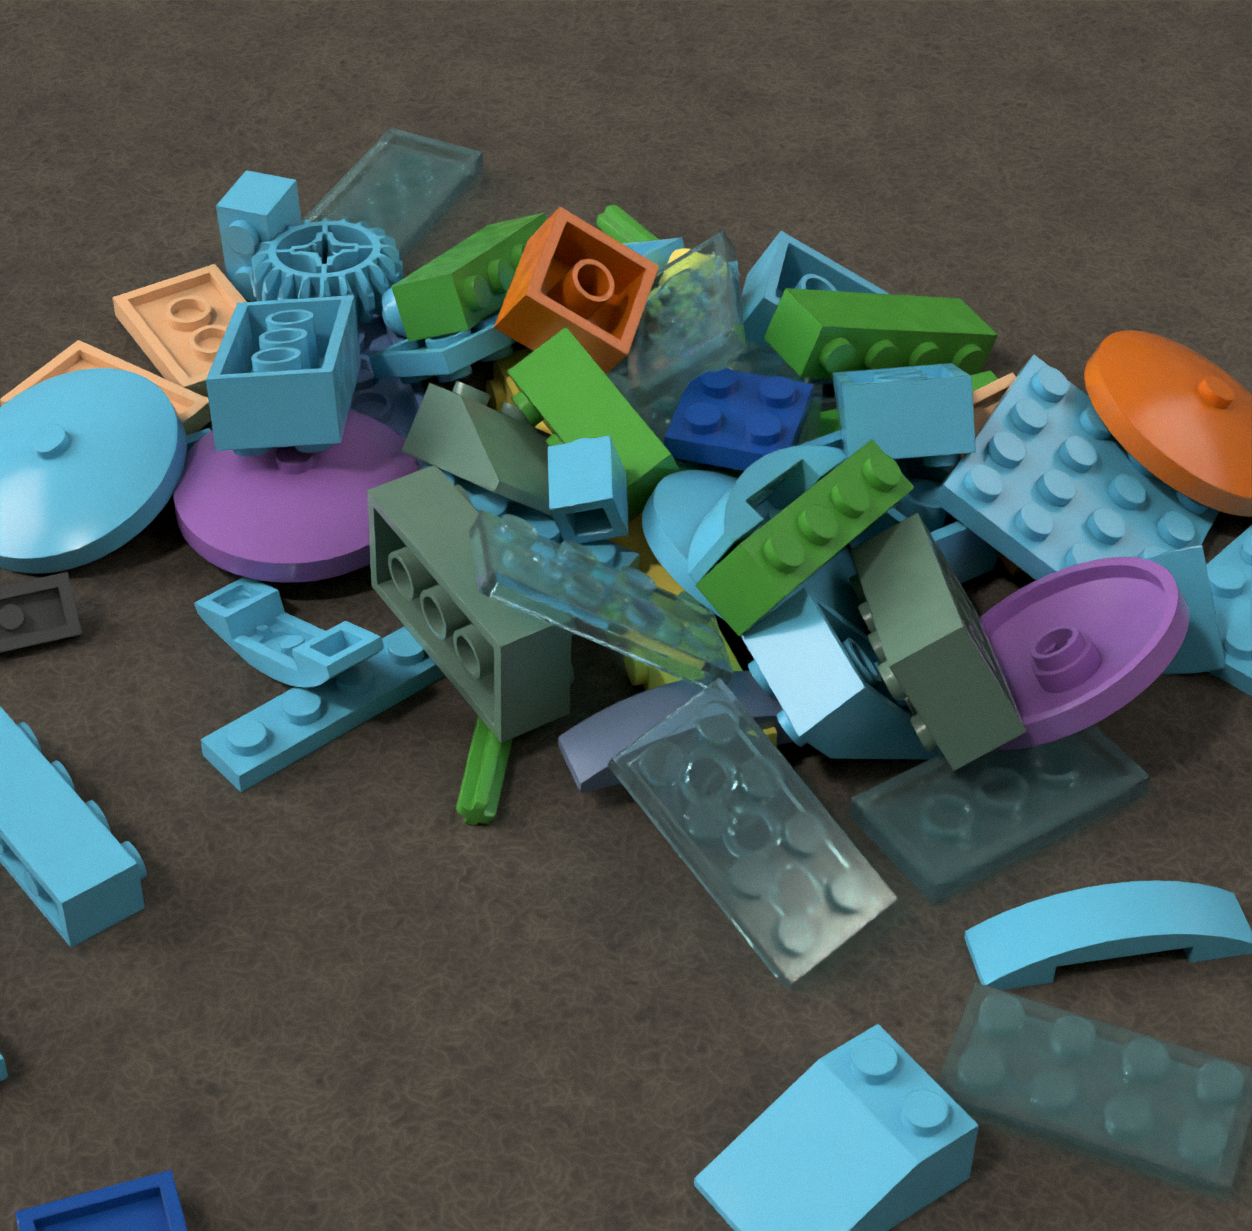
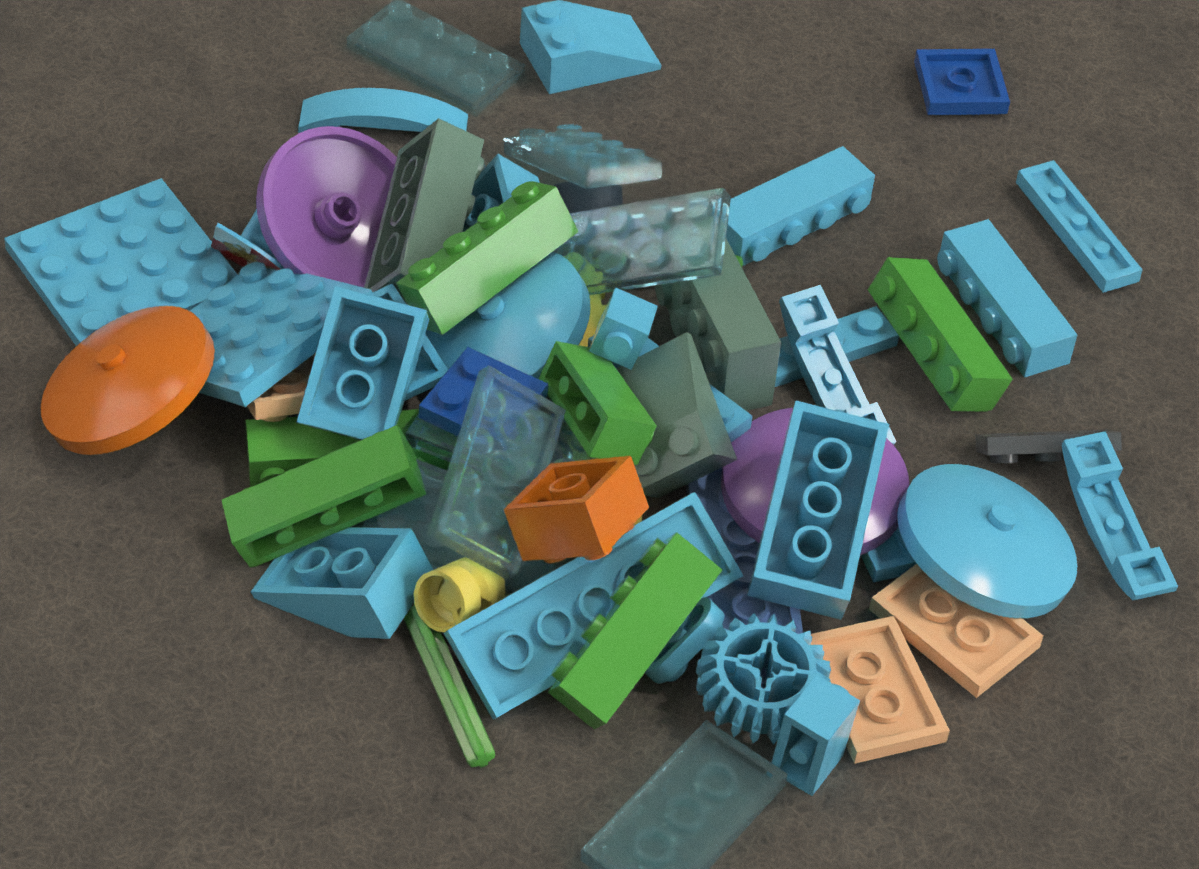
camera: 170 degrees left, 5 degrees up
(142, 728) = (939, 335): none -> bright green brick
(393, 905) = (797, 204): none -> medium azure brick
(775, 478) = (512, 290): medium azure slope -> none

